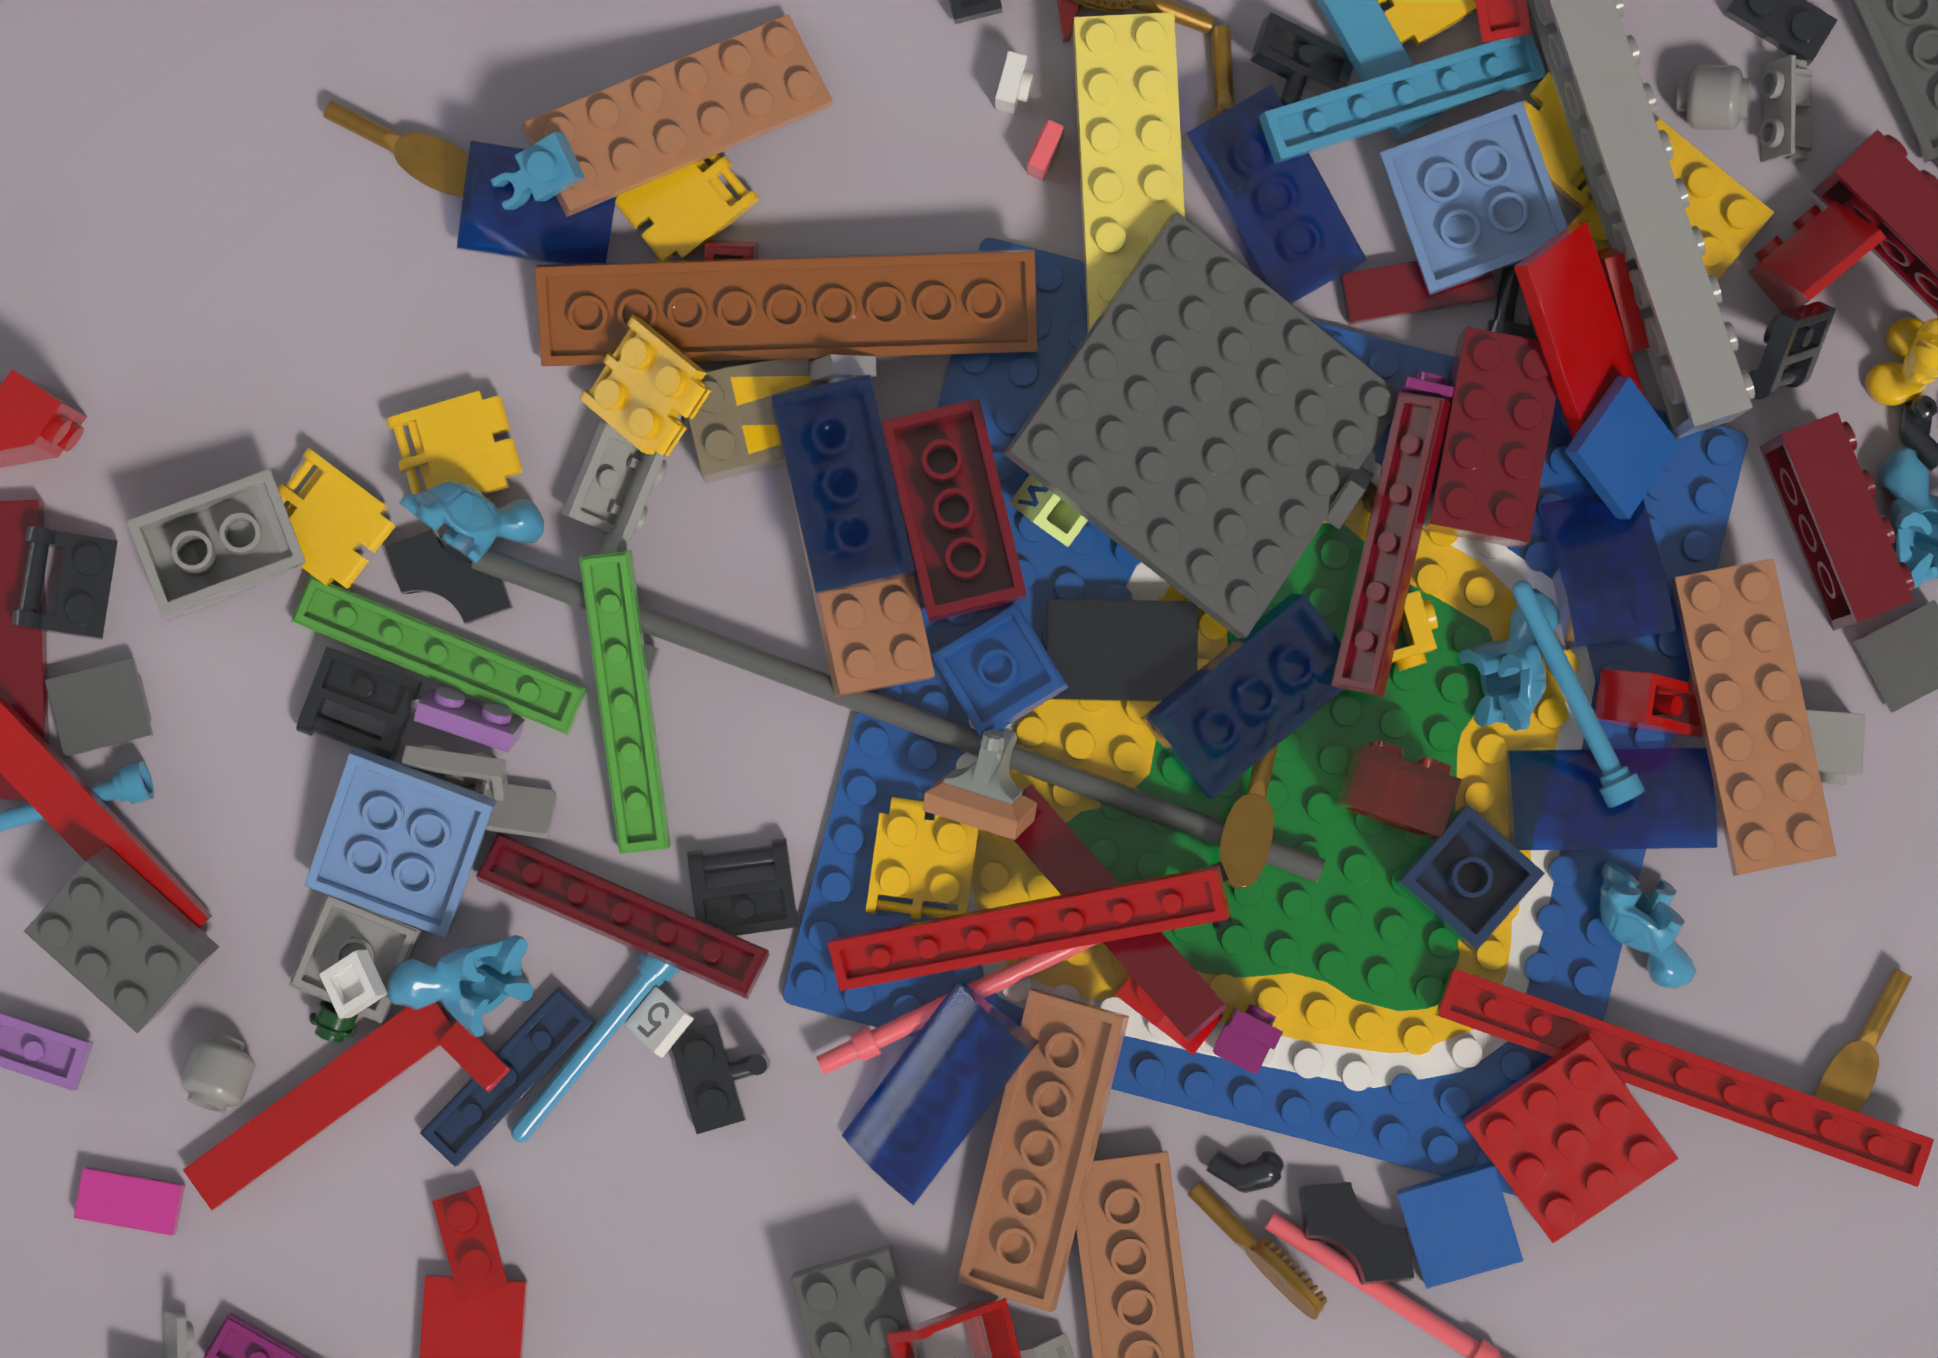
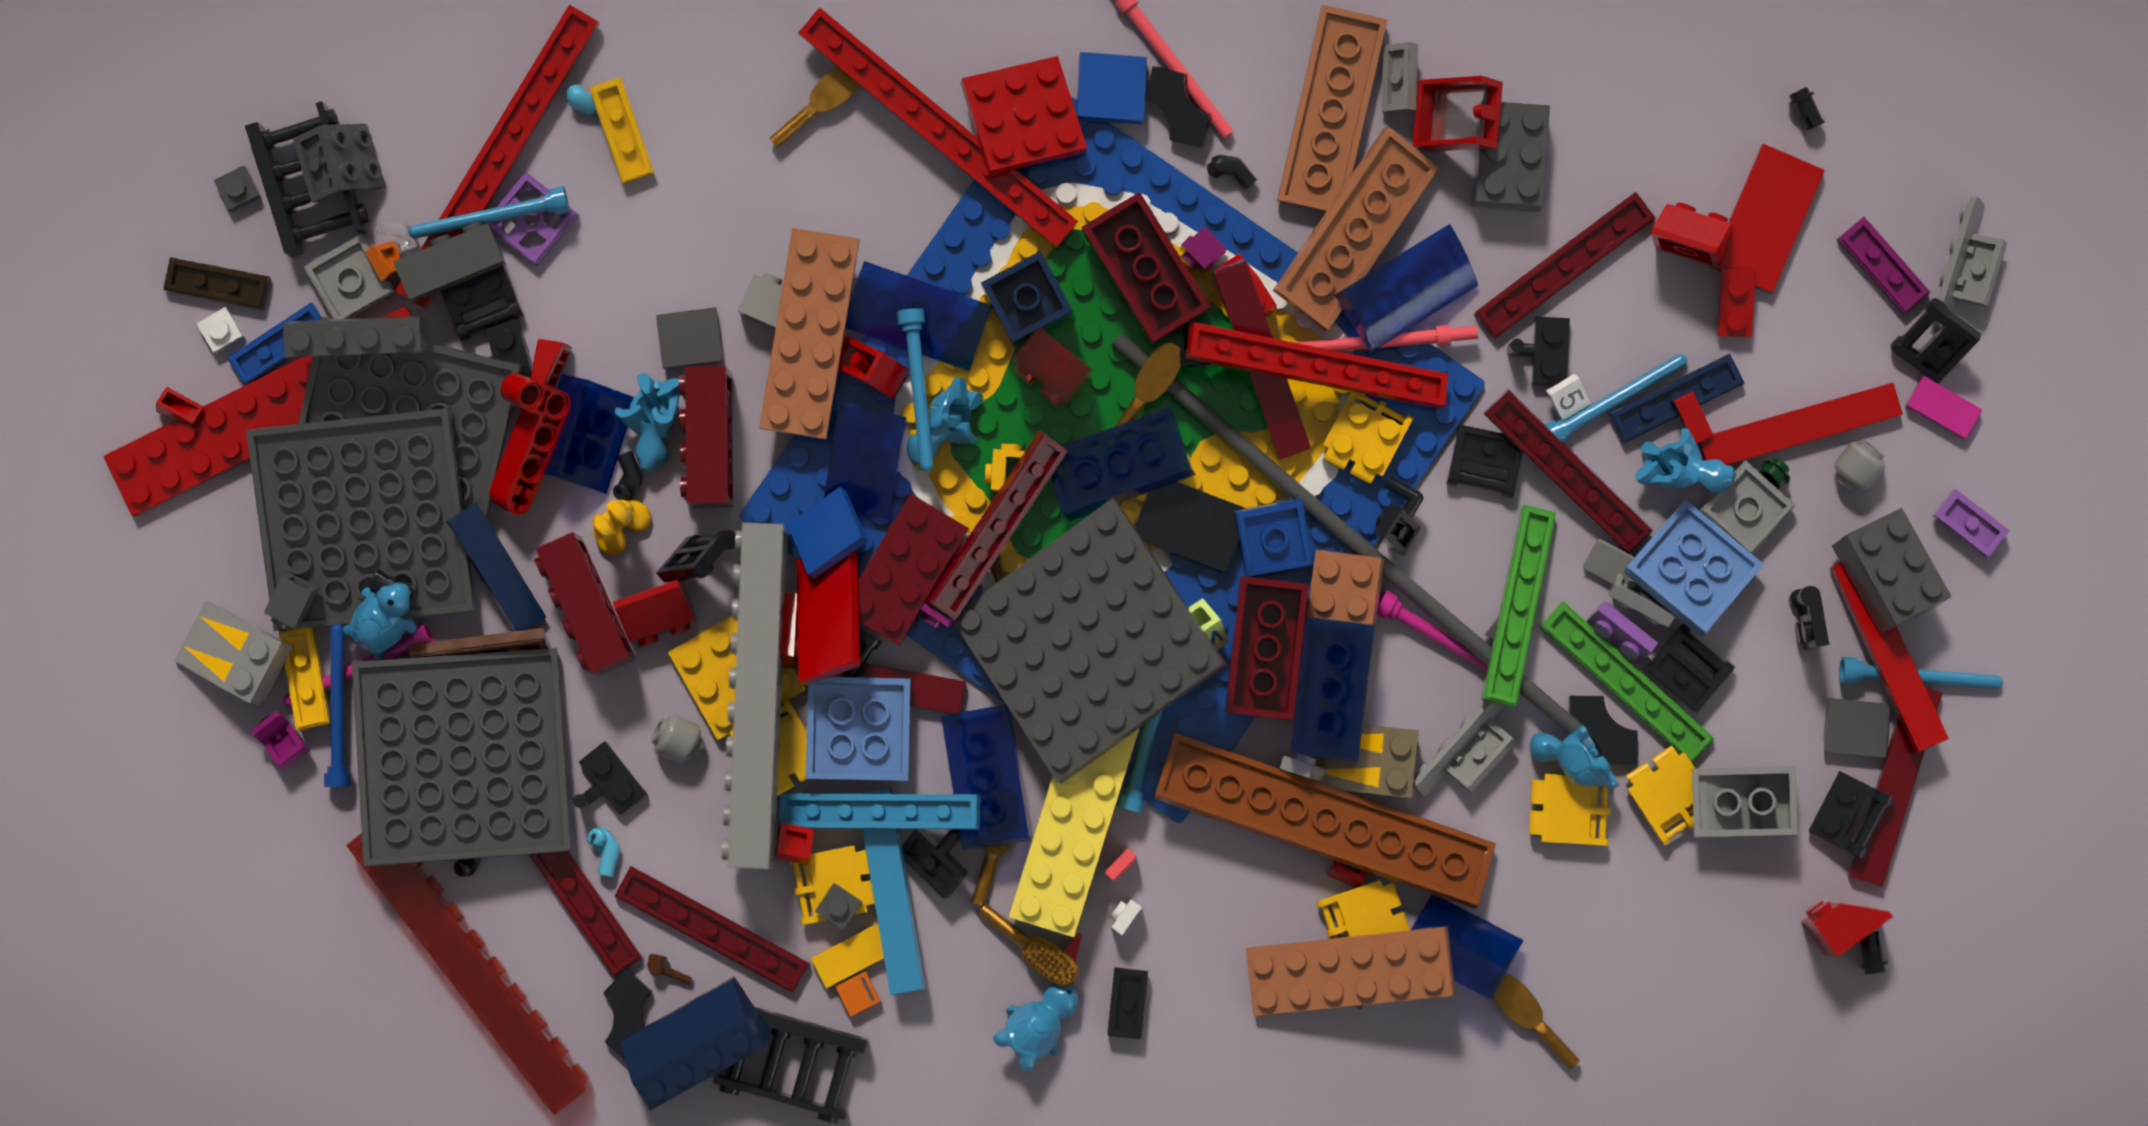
camera: 160 degrees left, 0 degrees up
(154, 1282) = (1943, 349): none -> black plate
(208, 825) = (1812, 624): none -> black plate
(353, 984) = (1754, 489): white plate -> none
(545, 171) = (1452, 958): dark azure plate -> none
(565, 1316) = (1692, 235): none -> red slope
(647, 389) = (1434, 799): yellow plate -> none
(729, 1208) = (1564, 265): none -> dark red tile
(801, 636) = (1391, 608): none -> dark pink piece
(834, 748) = (1396, 523): none -> black plate
(984, 791) = (1312, 463): piece -> none
(1063, 245) = (1132, 797): none -> dark azure piece
(1260, 1254) = (1242, 116): pearl gold piece -> none
(1318, 981) = (1146, 269): none -> dark red brick
(1348, 496) = (1011, 566): dark grey tile -> none
(1646, 924) = (925, 231): dark azure animal -> none
(1783, 88) = (641, 702): light grey hinge -> none

